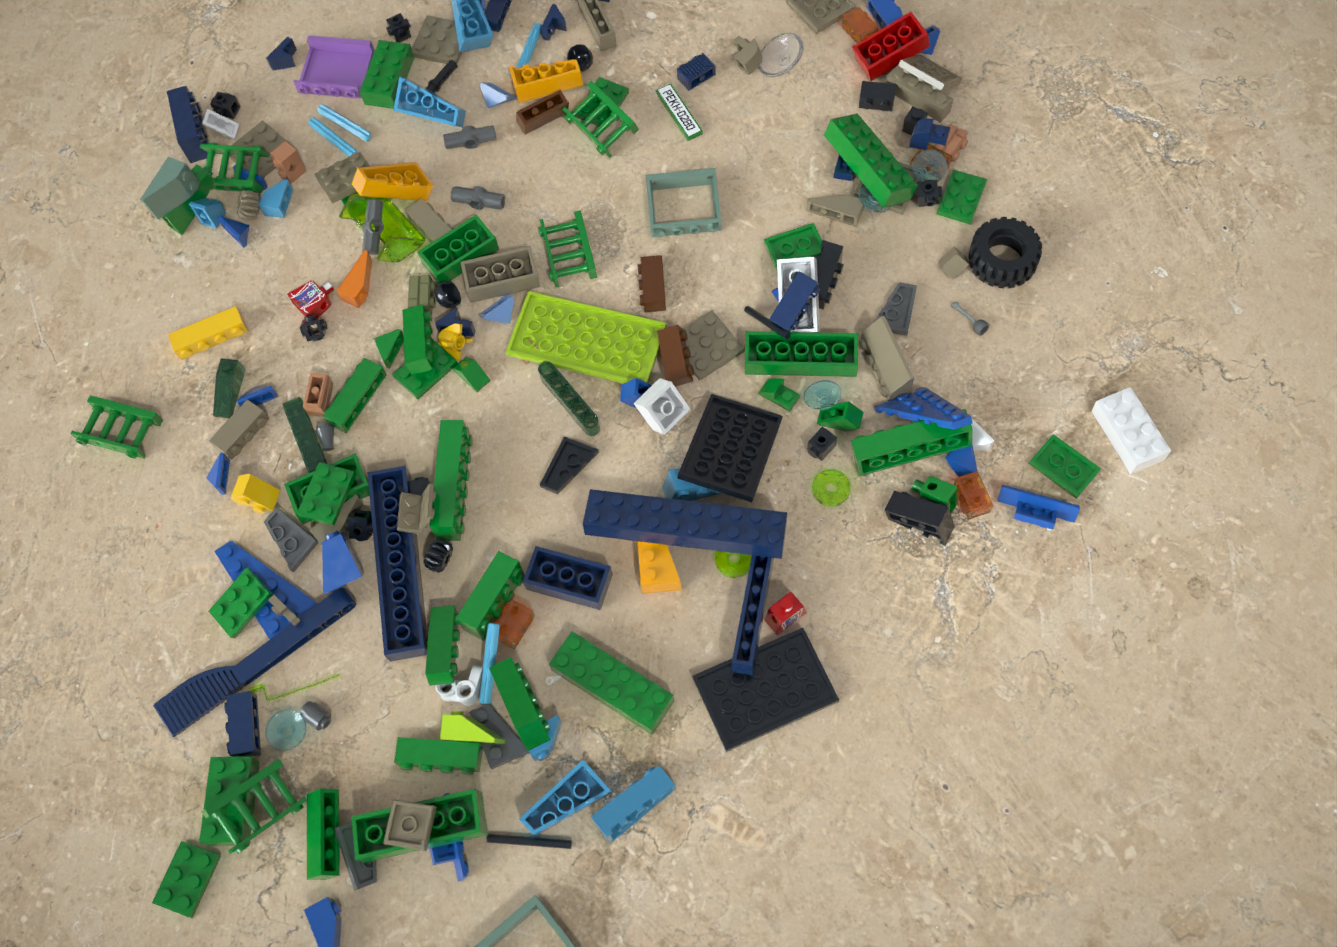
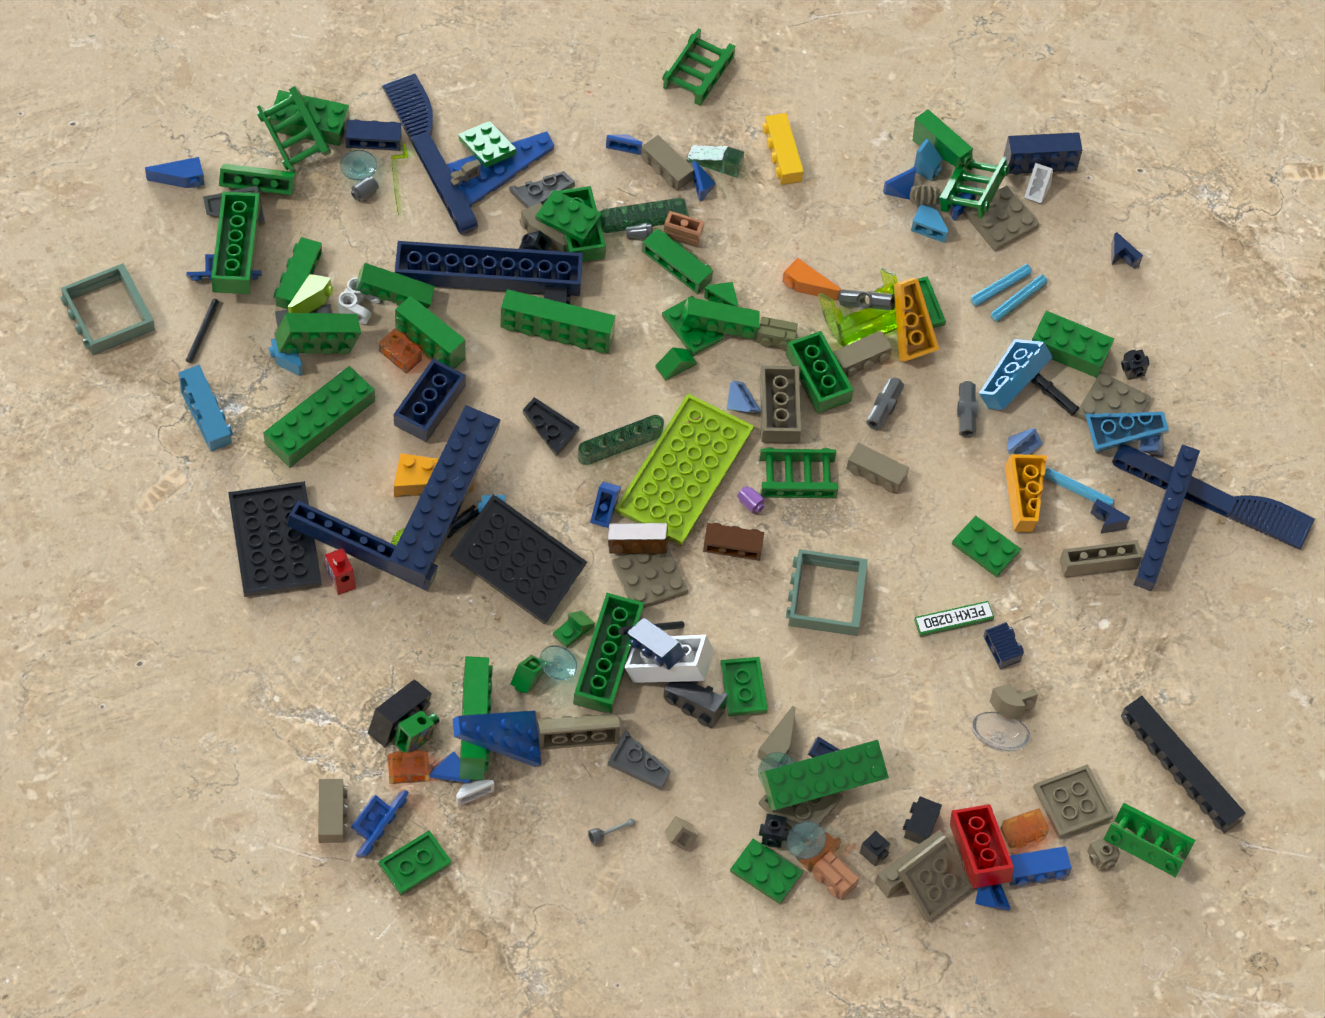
camera: 90 degrees right, 5 degrees down
(169, 188) = (939, 118): sand green slope -> none
(186, 879) = (255, 83): green plate -> none
(225, 104) = (1064, 190): black brick -> none
(255, 493) = (590, 164): yellow brick -> none
(288, 162) = (969, 235): nougat brick -> none
(311, 298) = (797, 238): red torso -> none
(313, 333) = (761, 234): black brick -> none
(335, 66) = (1094, 297): medium lavender panel -> none
(338, 562) = (498, 219): blue slope -> none
(339, 177) = (942, 286): dark tan plate -> none
(409, 825) = (234, 228): dark tan plate -> none
(416, 510) = (527, 280): dark tan bracket -> none
(438, 555) = (484, 301): black gear -> none
(447, 294) = (769, 354): black hair -> none
(452, 340) = (714, 350): yellow brick -> none
(454, 317) = (735, 355): dark blue slope -> none
(489, 660) = (378, 324): medium azure axle -> none
(541, 112) = (979, 480): reddish brown brick -> none
(547, 190) = (877, 468): none -> dark tan brick
(569, 796) = (228, 363): dark azure wedge -> none
(582, 55) = (1048, 533): black hair -> none
(605, 279) = (751, 499): none -> medium lavender brick
(616, 114) = (962, 546): green fence -> none
(662, 406) = (582, 511): white brick -> none
(821, 443) = (504, 648): black brick -> none
(835, 478) = (452, 638): clear neon green tile -> none
(926, 132) = (836, 837): dark blue brick -> none
(1011, 234) = (679, 857): black tyre -> none
(1042, 551) = (332, 810): none -> dark tan brick
(1130, 430) = (433, 935): white brick -> none

